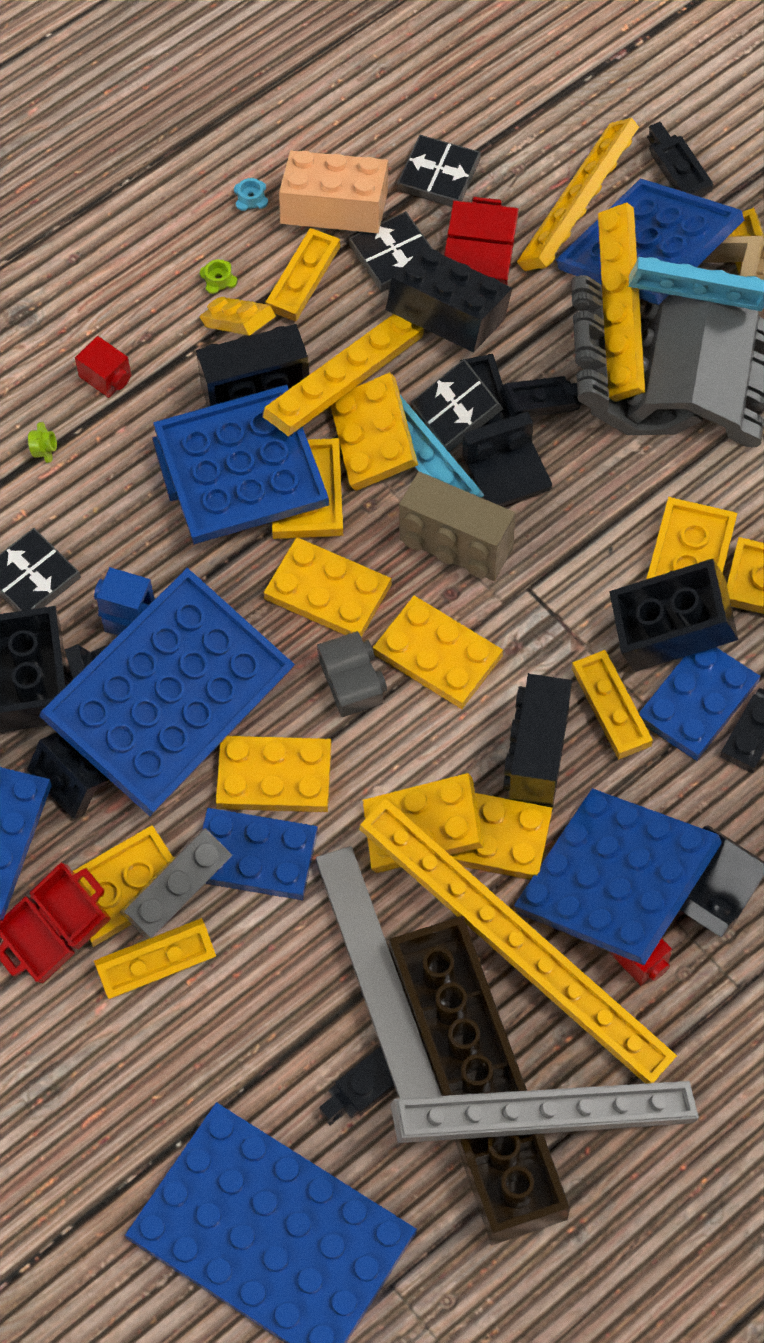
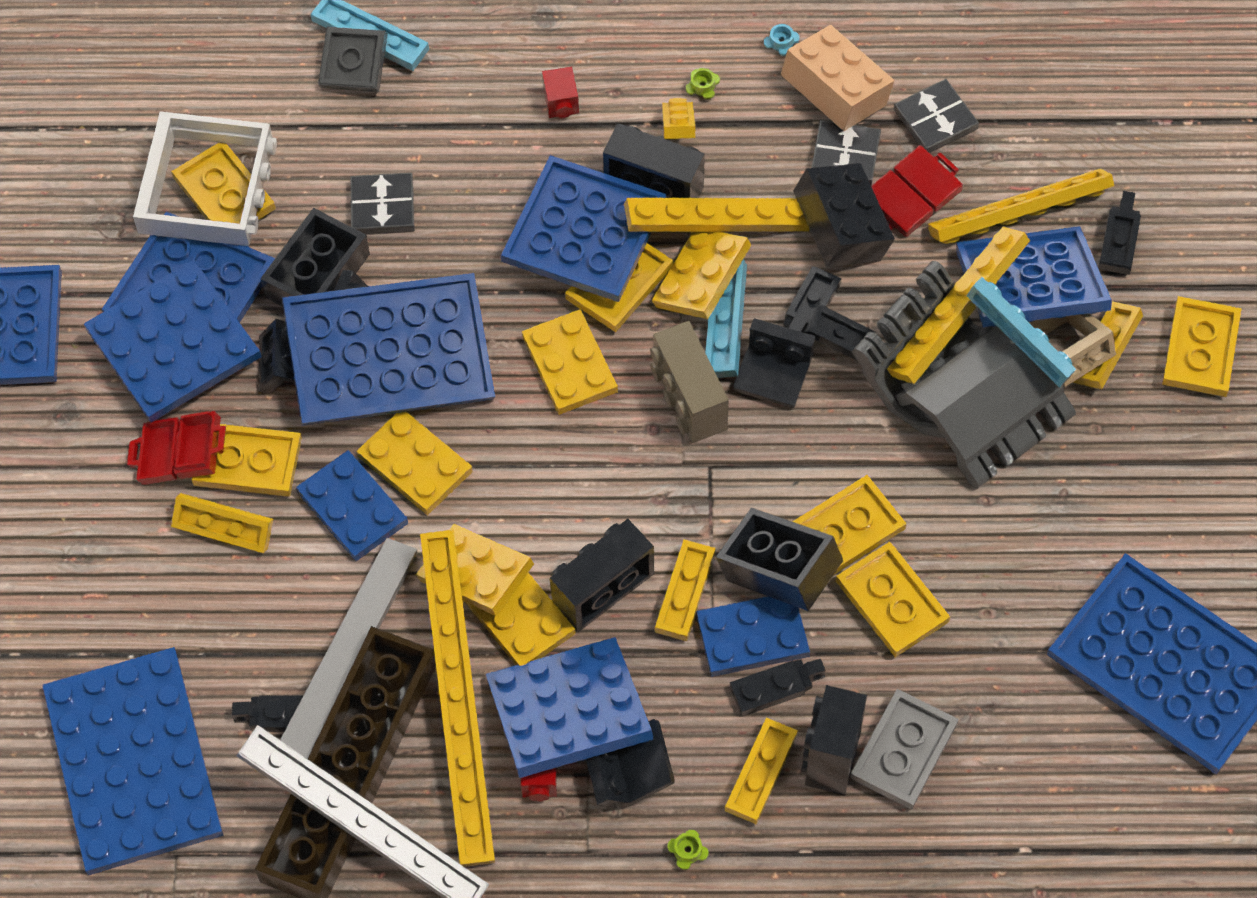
camera: 40 degrees right, 0 degrees up
(42, 442) = (471, 117): lime plate -> none
(122, 599) = (414, 260): blue brick -> none
(175, 883) = (271, 481): dark grey brick -> none
(303, 274) = (762, 123): yellow plate -> none
(351, 674) = (526, 431): dark grey brick -> none
(438, 652) = (602, 462): yellow plate -> none
(456, 405) = (778, 295): black tile -> none

